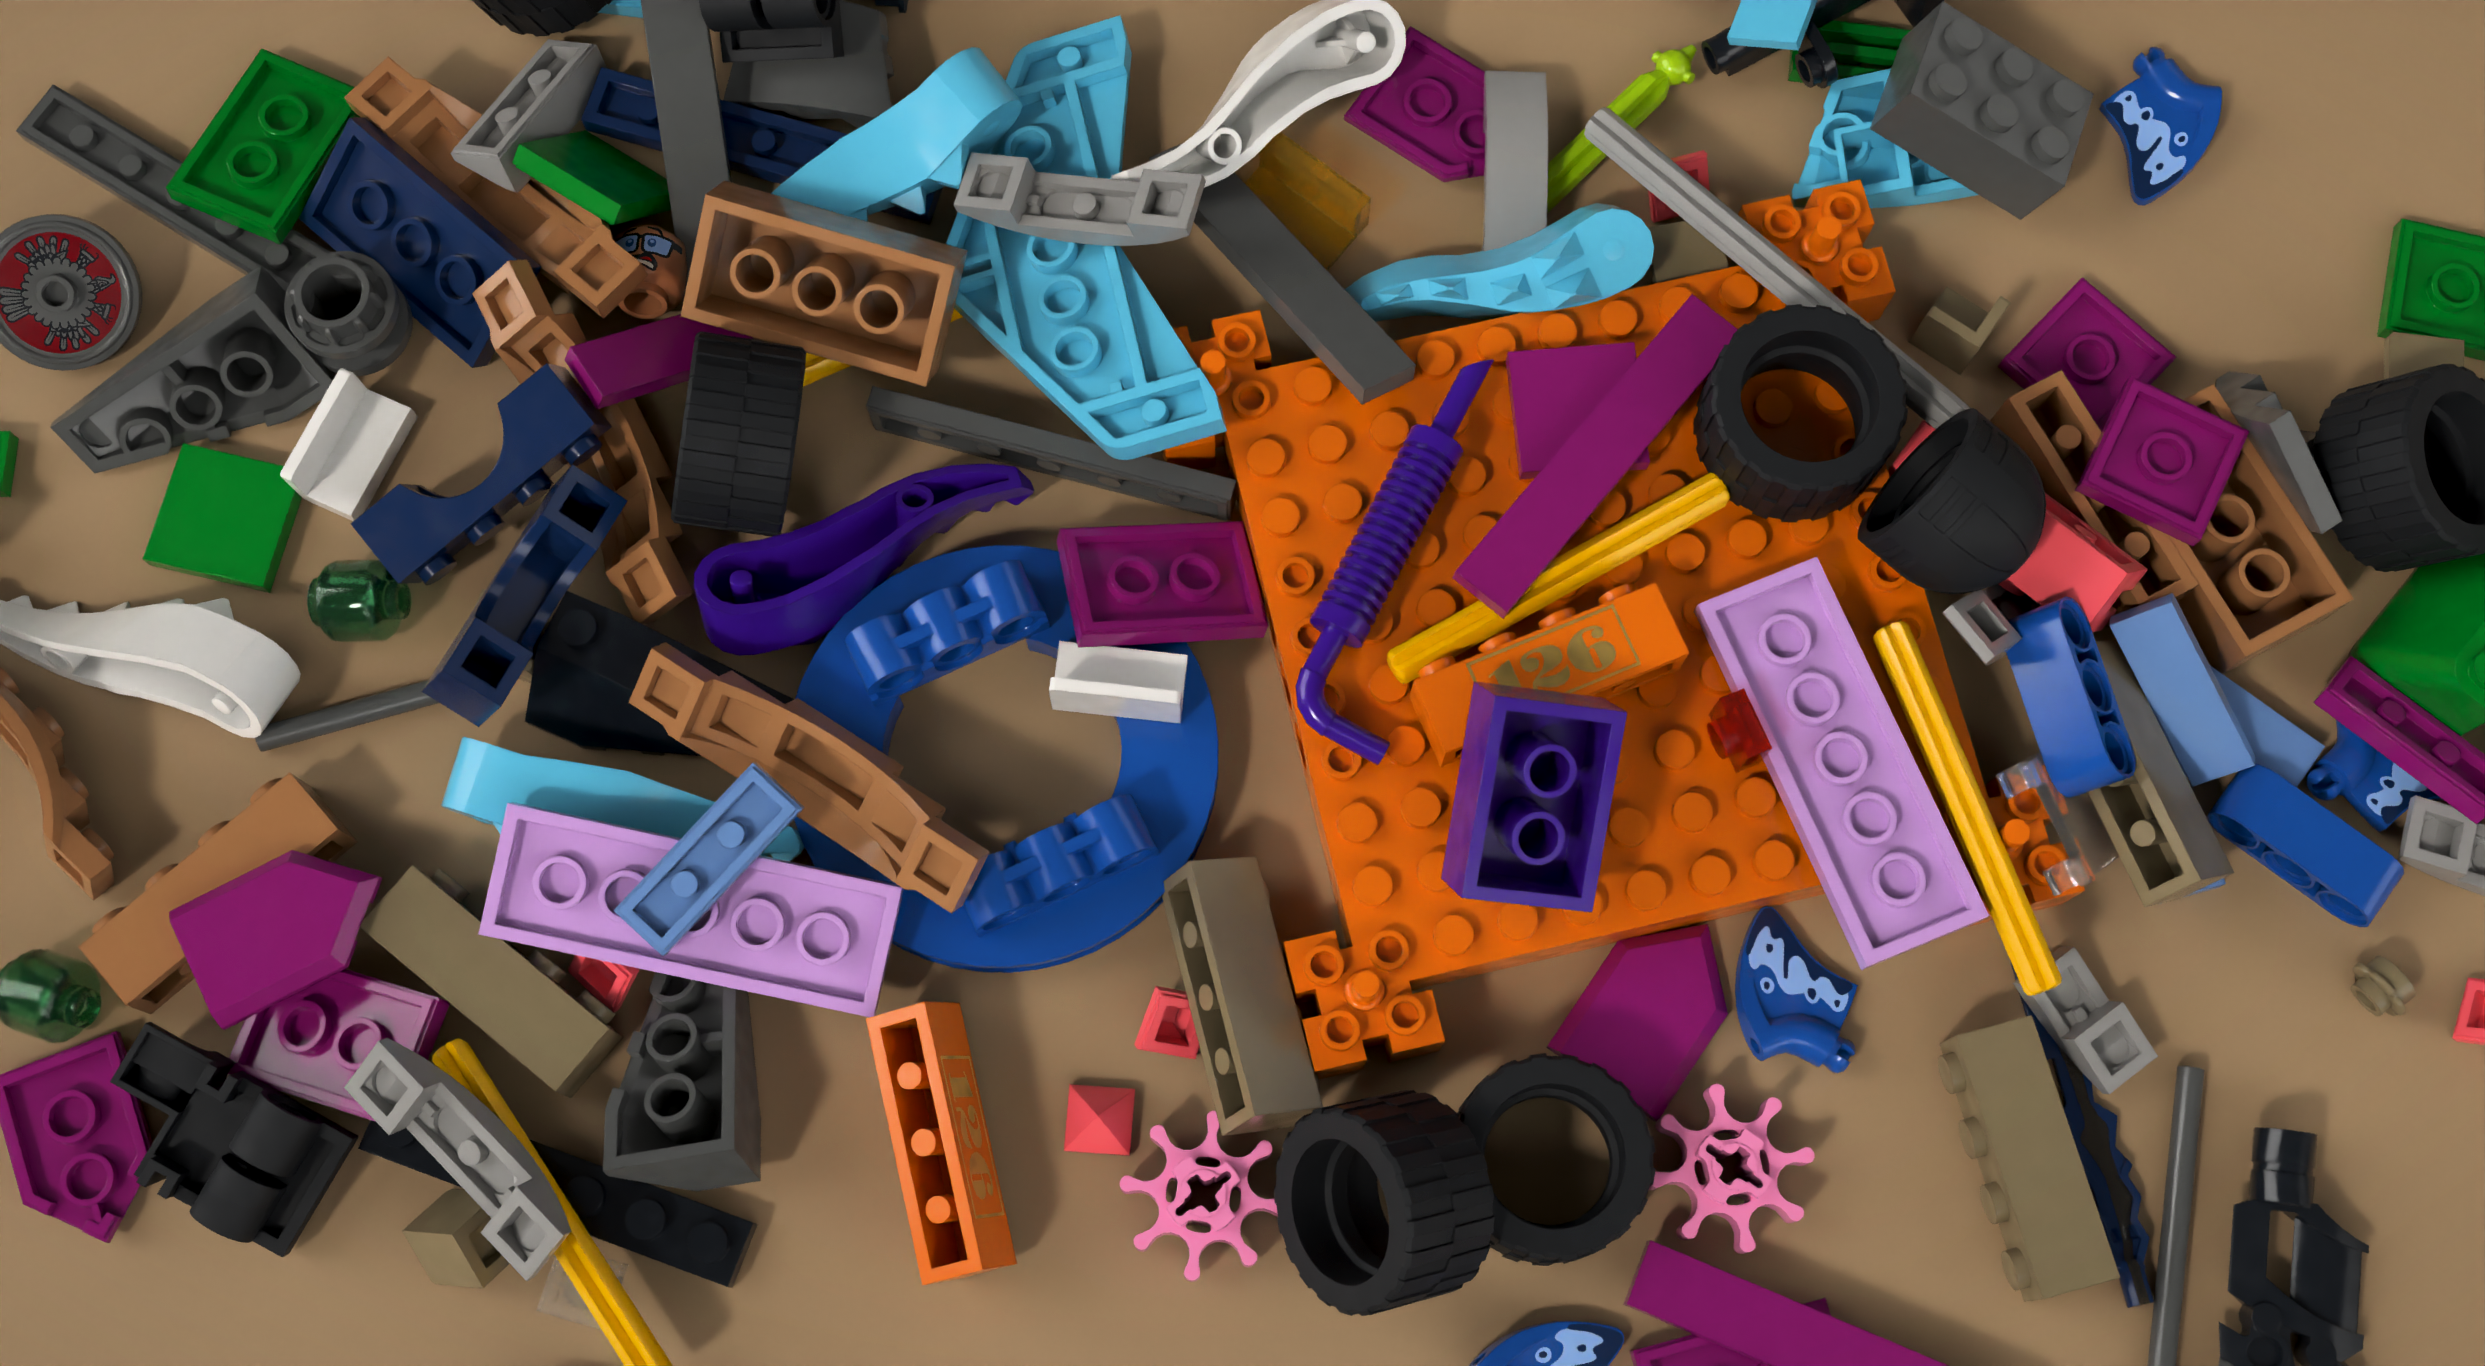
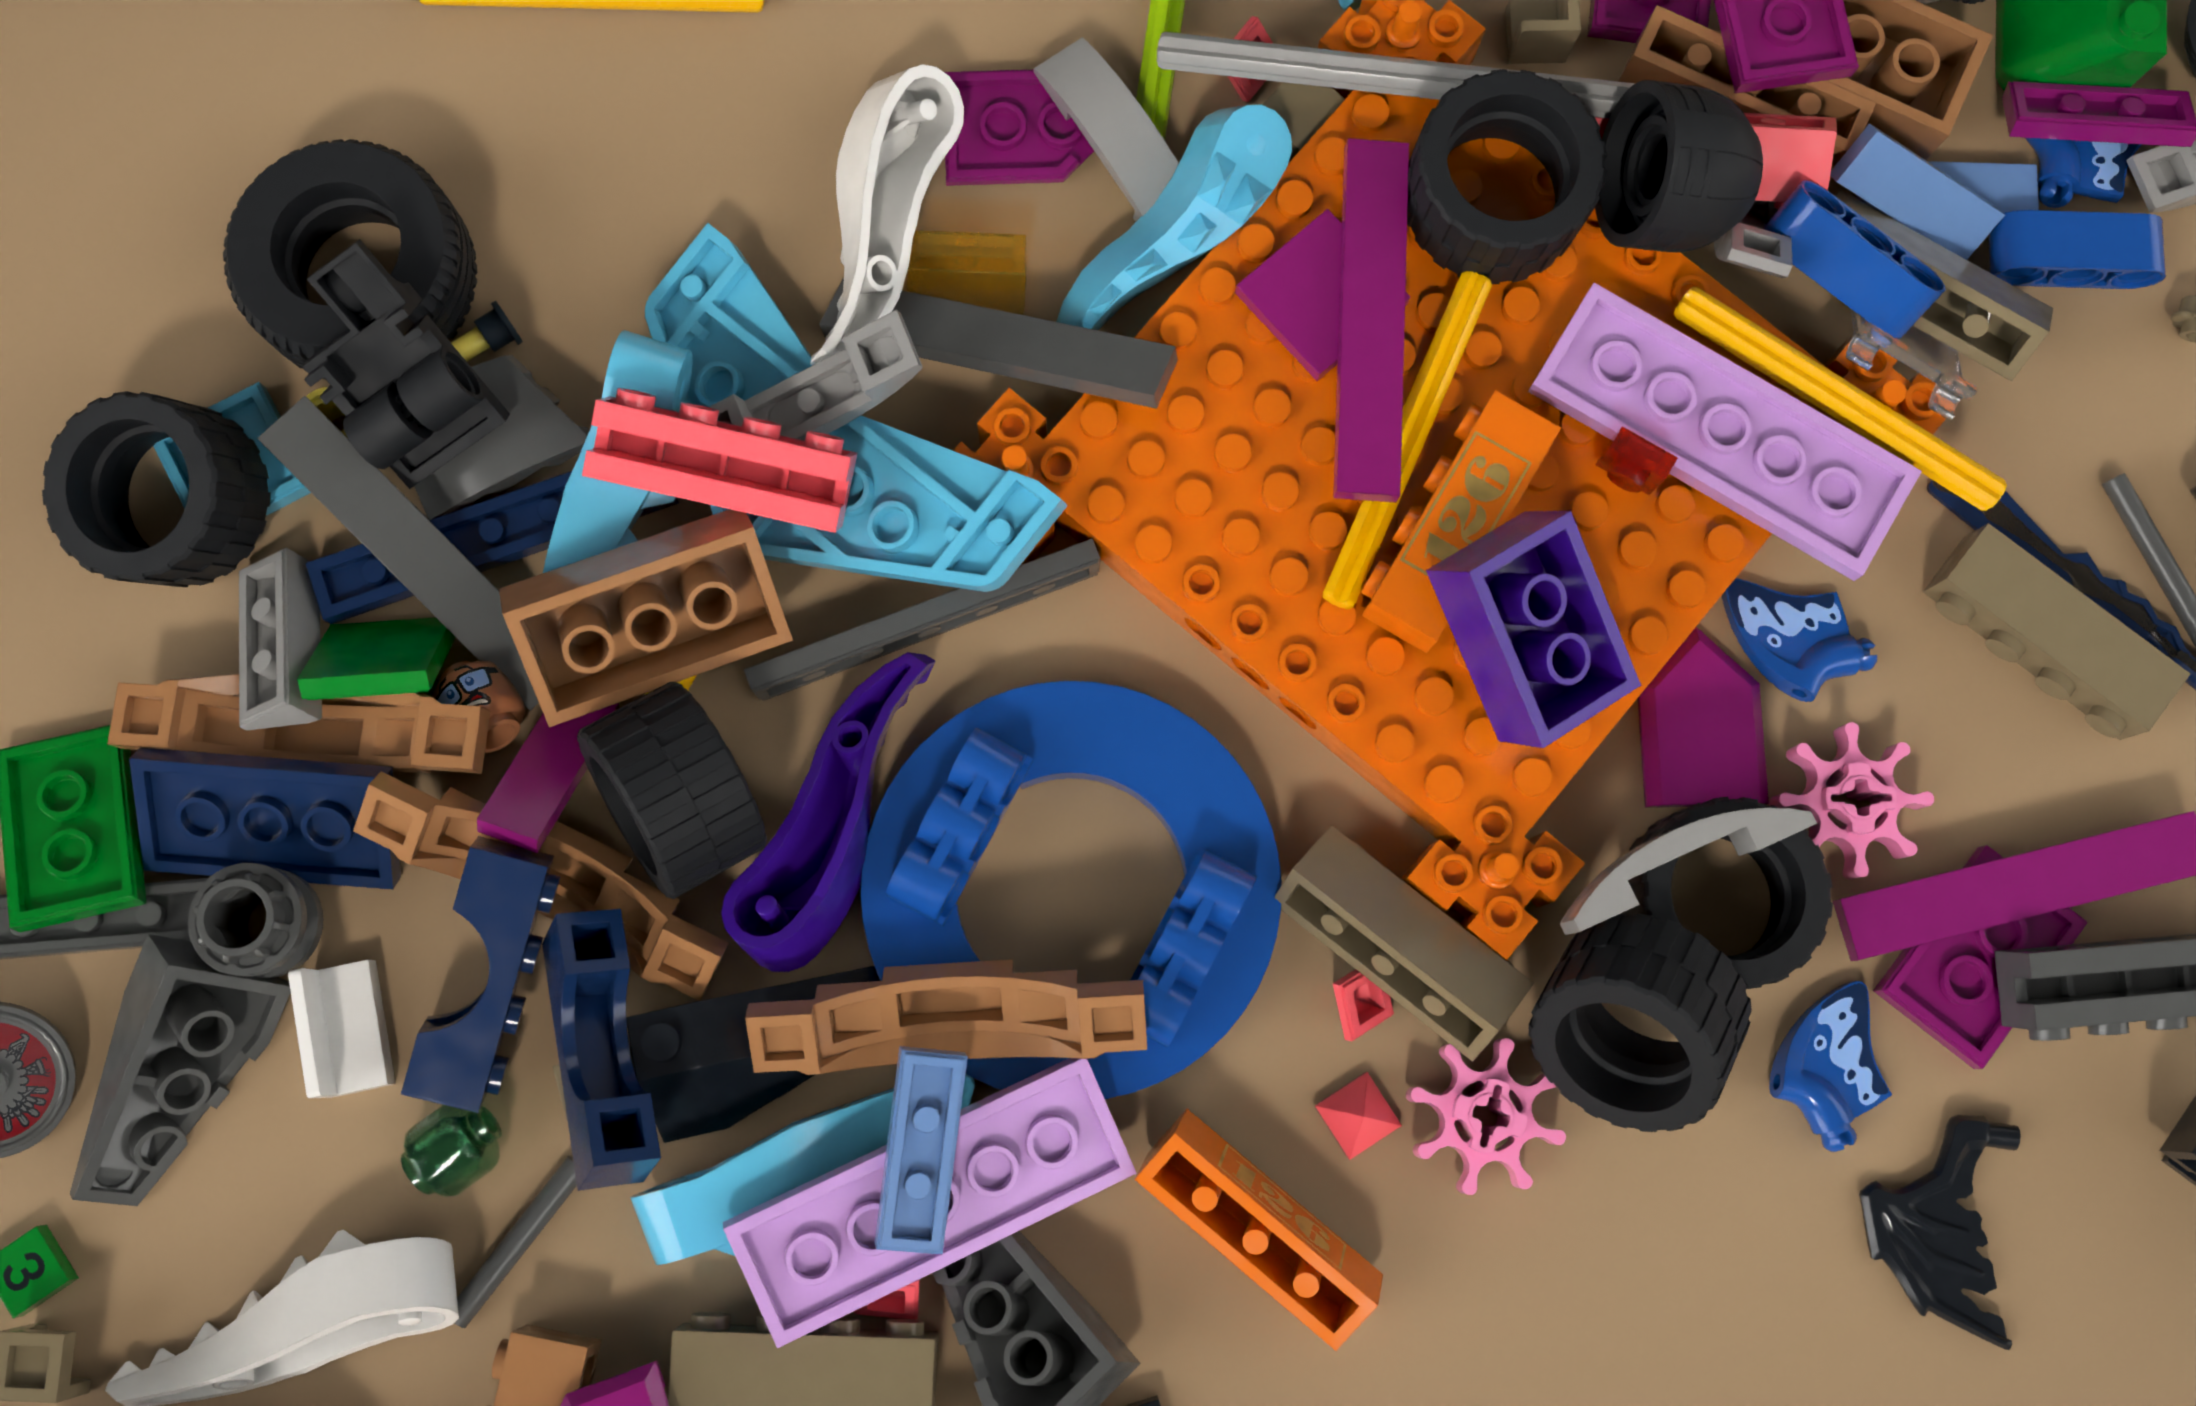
camera: 40 degrees left, 5 degrees up
(224, 519) = (280, 1163): green tile -> none
(972, 202) = (720, 462): none -> coral brick
(1119, 682) = (1125, 765): white panel -> none
(1161, 583) = (1094, 664): magenta tile -> none
(1379, 555) = (1259, 521): dark purple piece -> none
(1601, 1105) = (1747, 829): none -> light grey slope
(2088, 1027) = (2034, 502): light grey slope -> none

